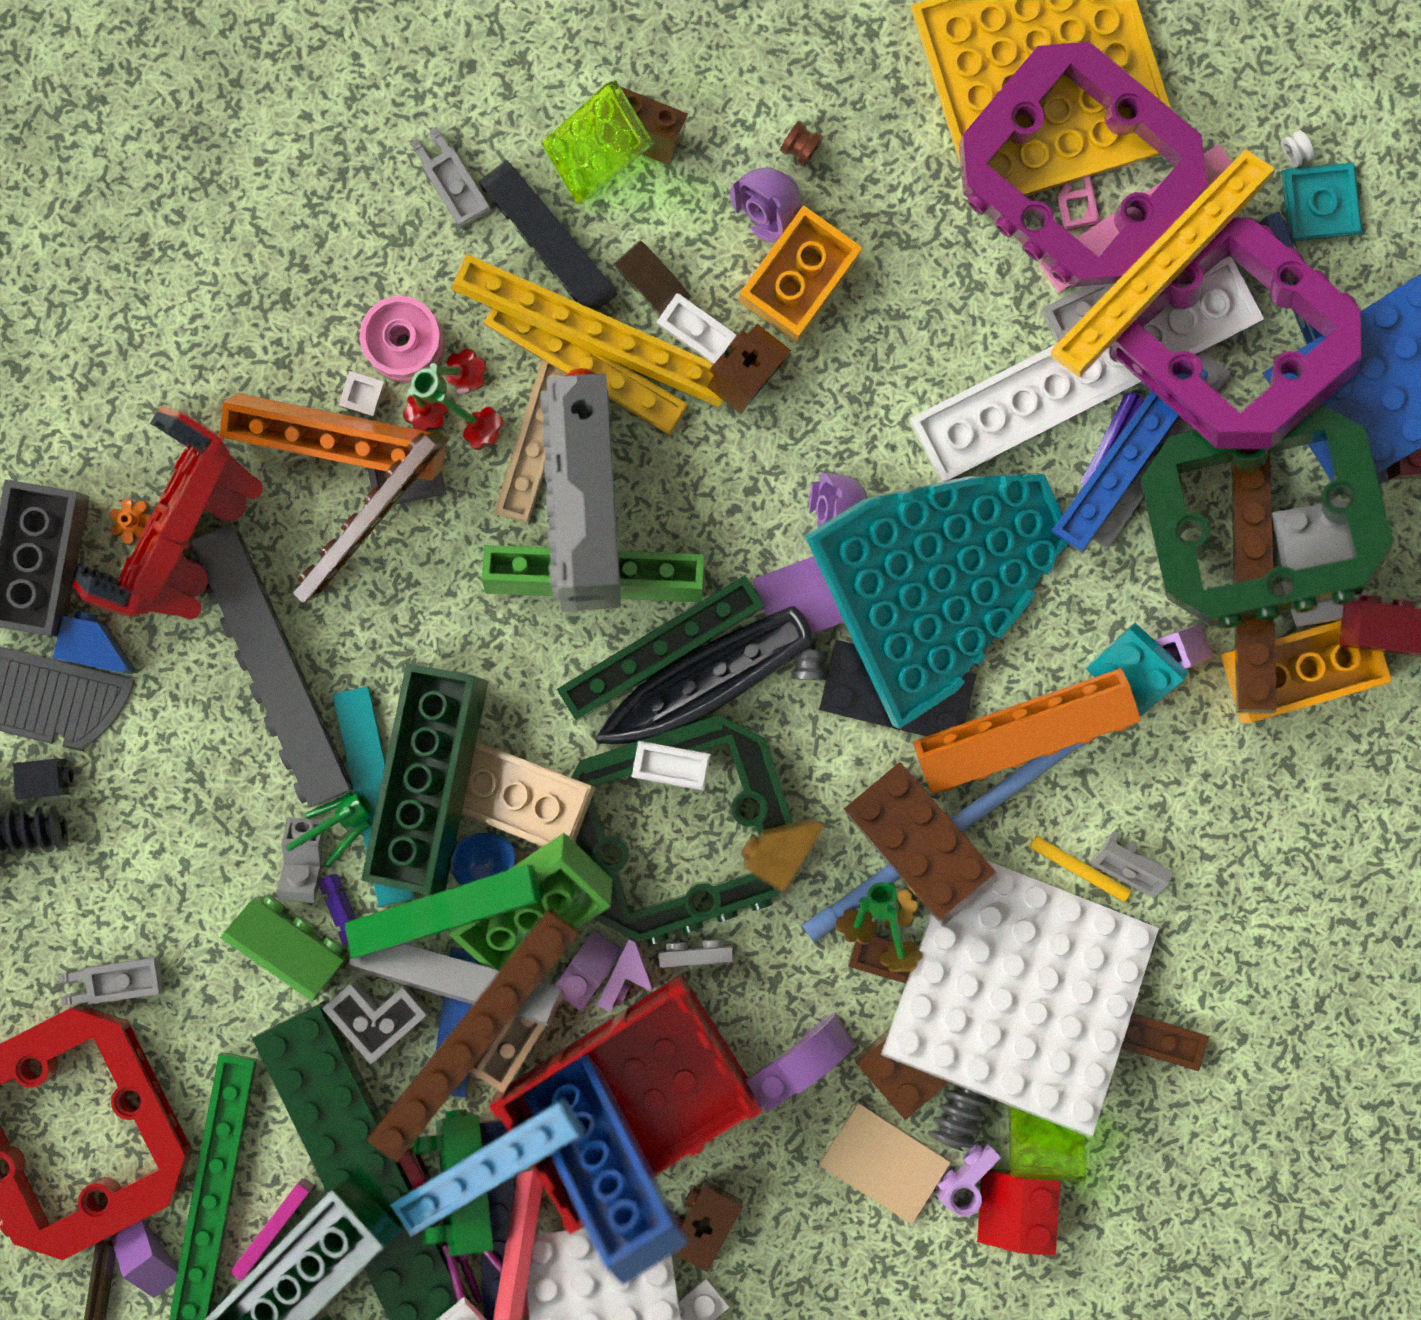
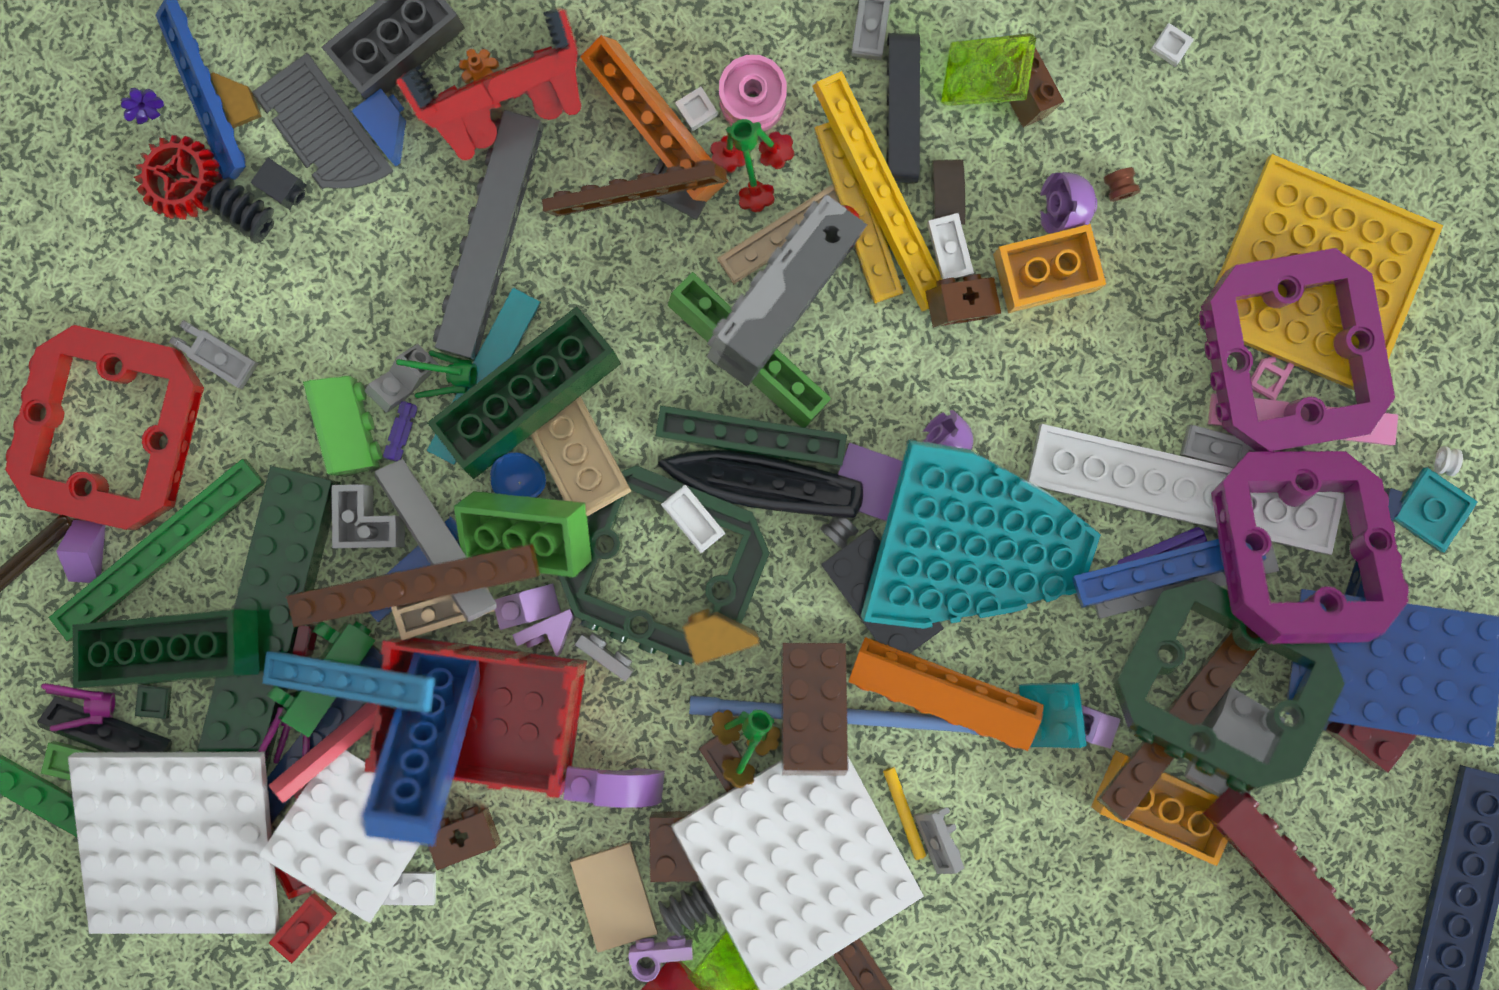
camera: 40 degrees right, 0 degrees up
(272, 1228) = (180, 601): dark pink tile -> none
(443, 911) = (463, 488): green tile -> none
(1162, 263) = (1298, 460): yellow plate -> none

